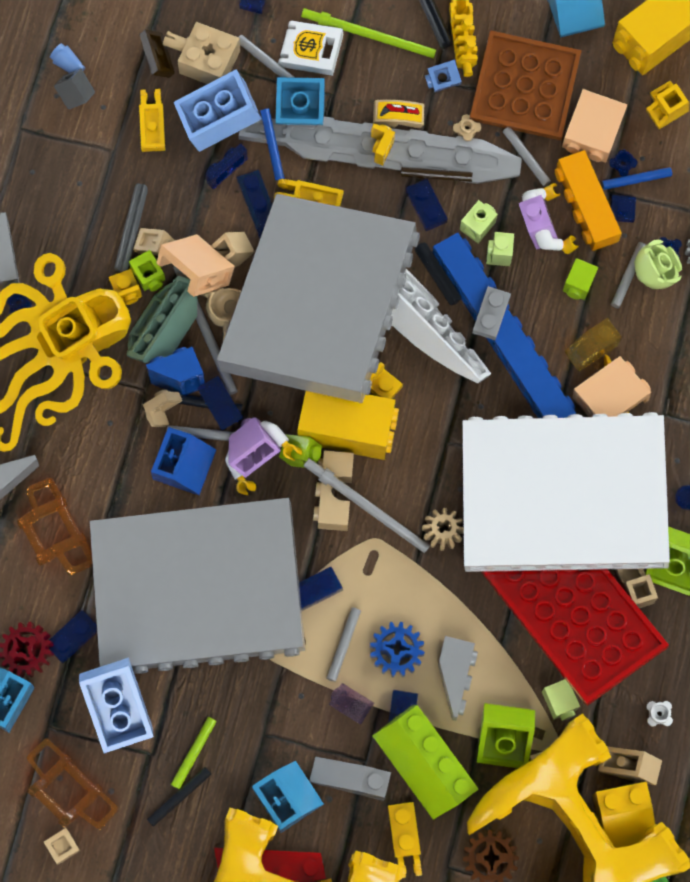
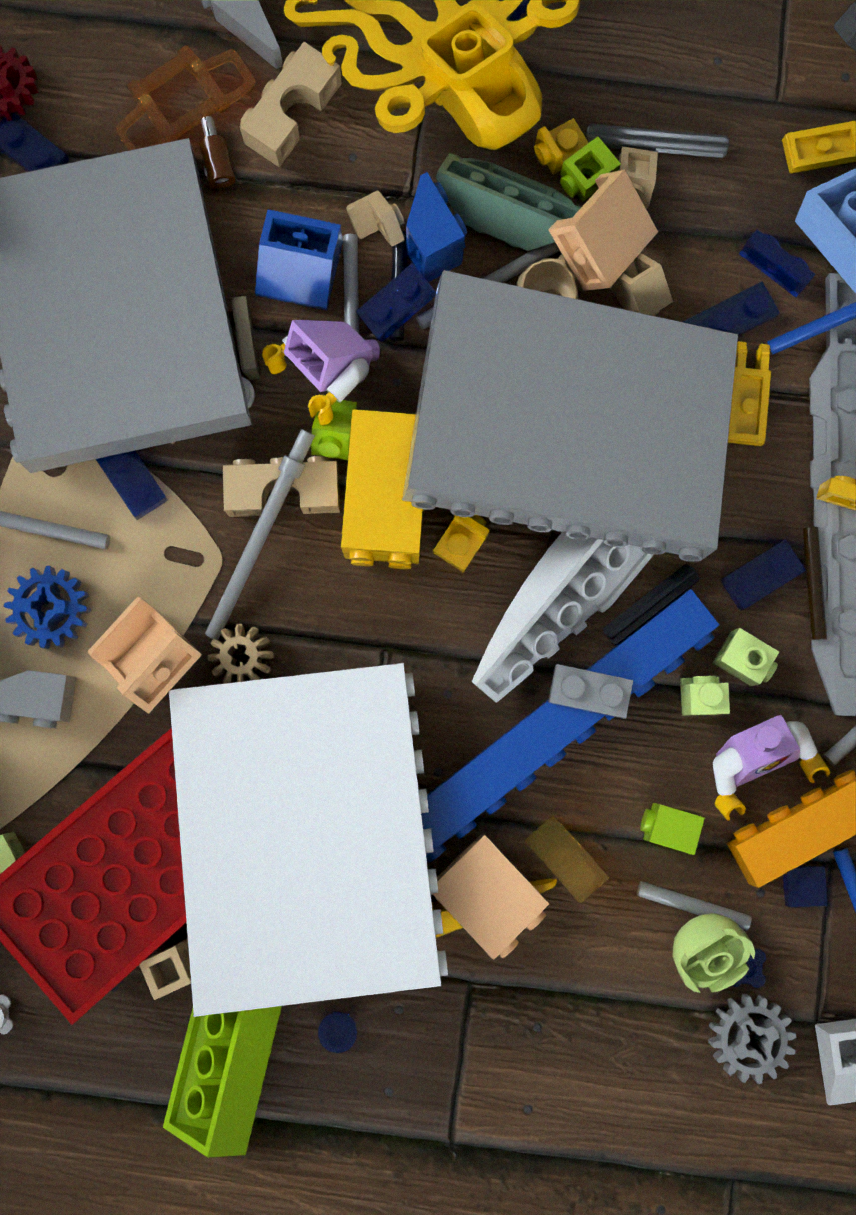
camera: 80 degrees right, 10 degrees up
(85, 471) = (303, 80): none -> tan arch
(98, 510) = (215, 156): none -> reddish brown piece
(219, 500) = (245, 338): none -> dark tan tile
(437, 583) = (144, 654): none -> light nougat panel

